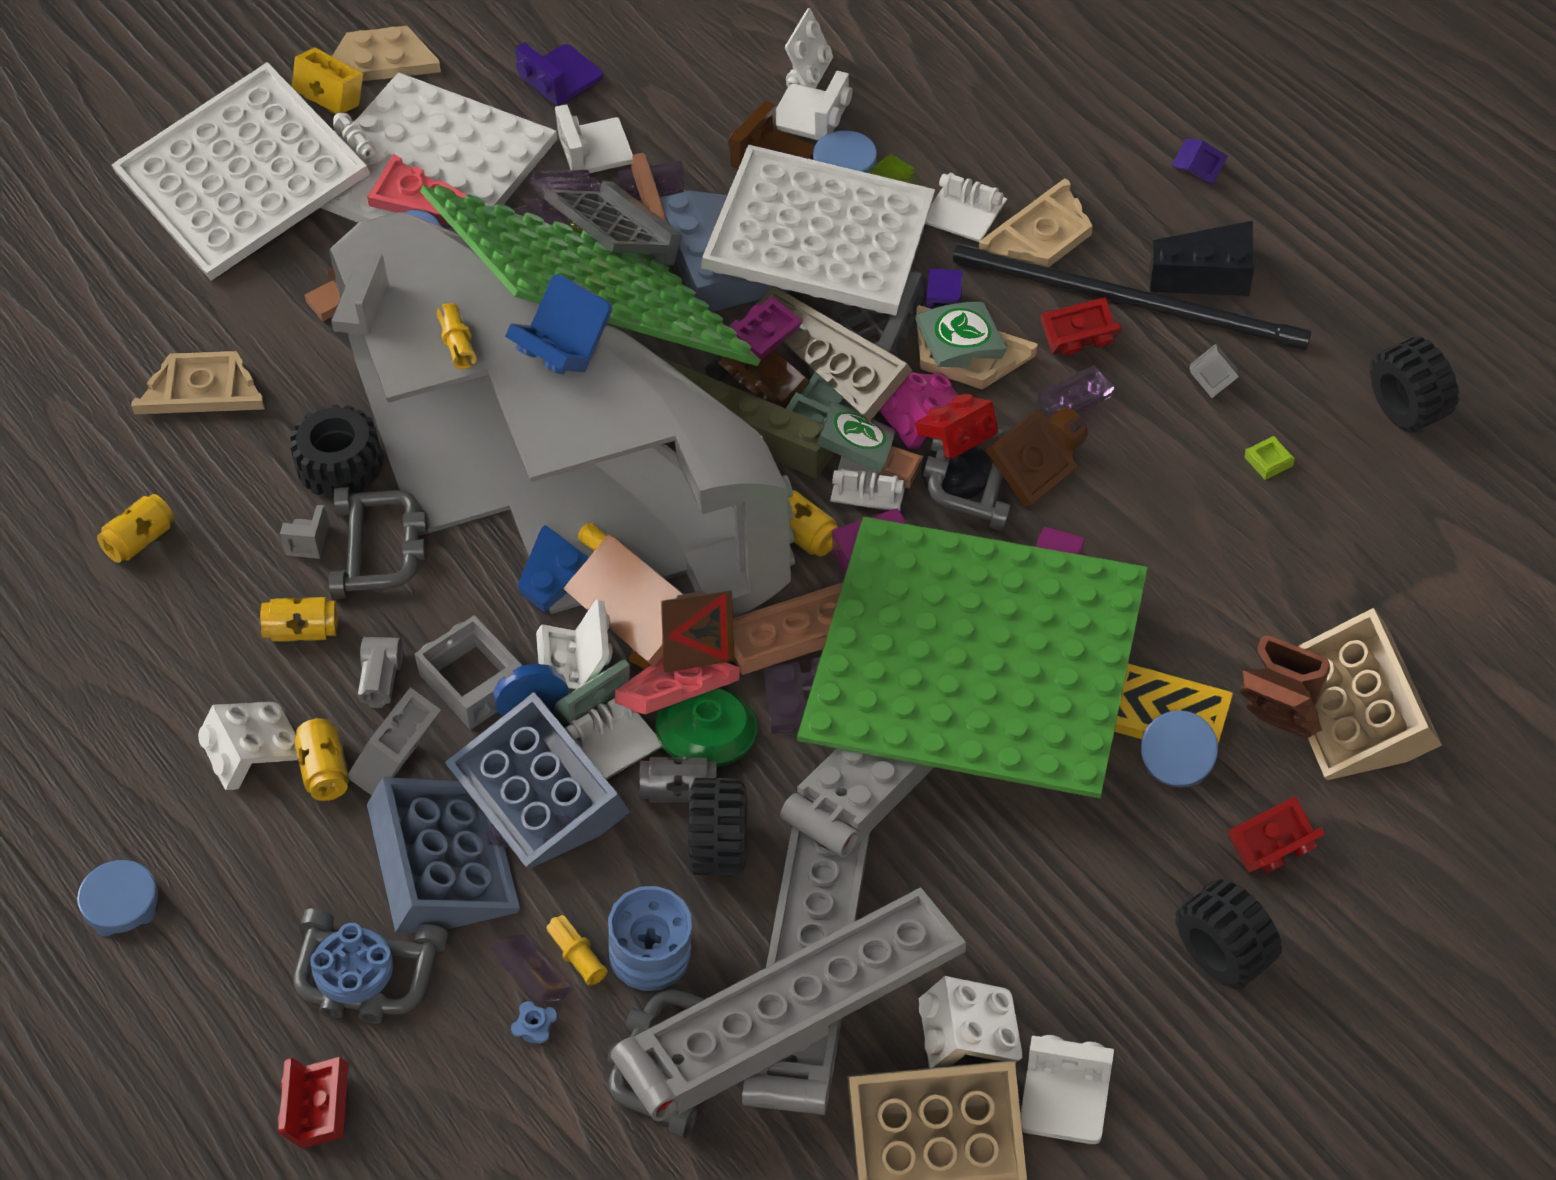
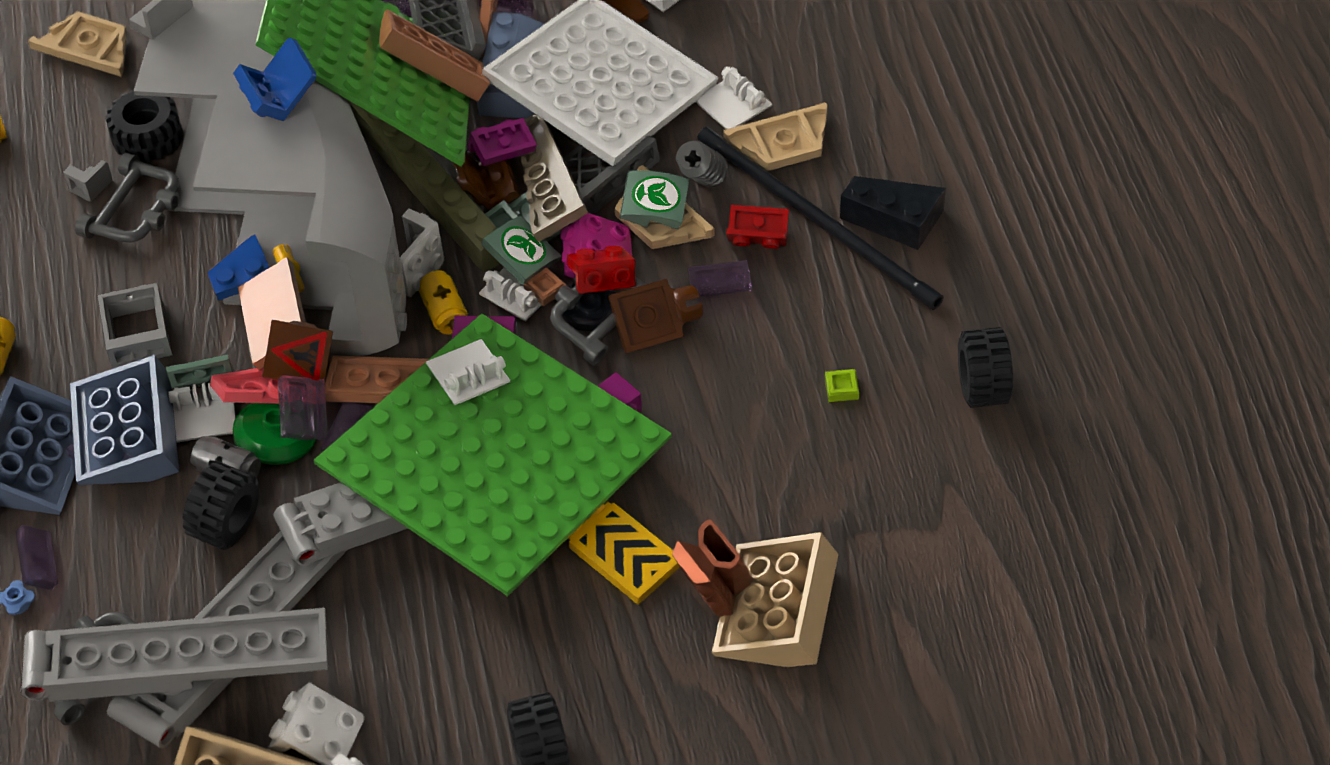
camera: 25 degrees right, 0 degrees up
(317, 612) = (41, 240): yellow piece -> none
(379, 662) = (76, 294): light grey piece -> none
(394, 741) = (41, 359): light grey window -> none
(456, 336) = (206, 61): yellow pin -> none
(530, 678) = (161, 345): blue tile -> none
(576, 950) = (77, 558): yellow axle -> none
(577, 652) = (208, 336): white bracket -> none
(645, 261) = (432, 55): none -> nougat slope
(646, 919) = (124, 568): medium blue wheel -> none
(735, 688) = (302, 408): none -> plate
(846, 150) = (669, 24): medium blue tile -> none
(893, 168) = (698, 51): clear neon green tile -> none
(903, 579) = (469, 371): none -> white hinge
(944, 287) = (665, 158): dark purple panel -> none
(987, 267) = (701, 163): none -> dark grey piece
(1179, 749) = (607, 584): medium blue tile -> none
(1200, 160) = (946, 125): dark purple panel -> none
(1214, 370) = (841, 299): light grey panel -> none
(1274, 834) = (637, 680): red bracket -> none

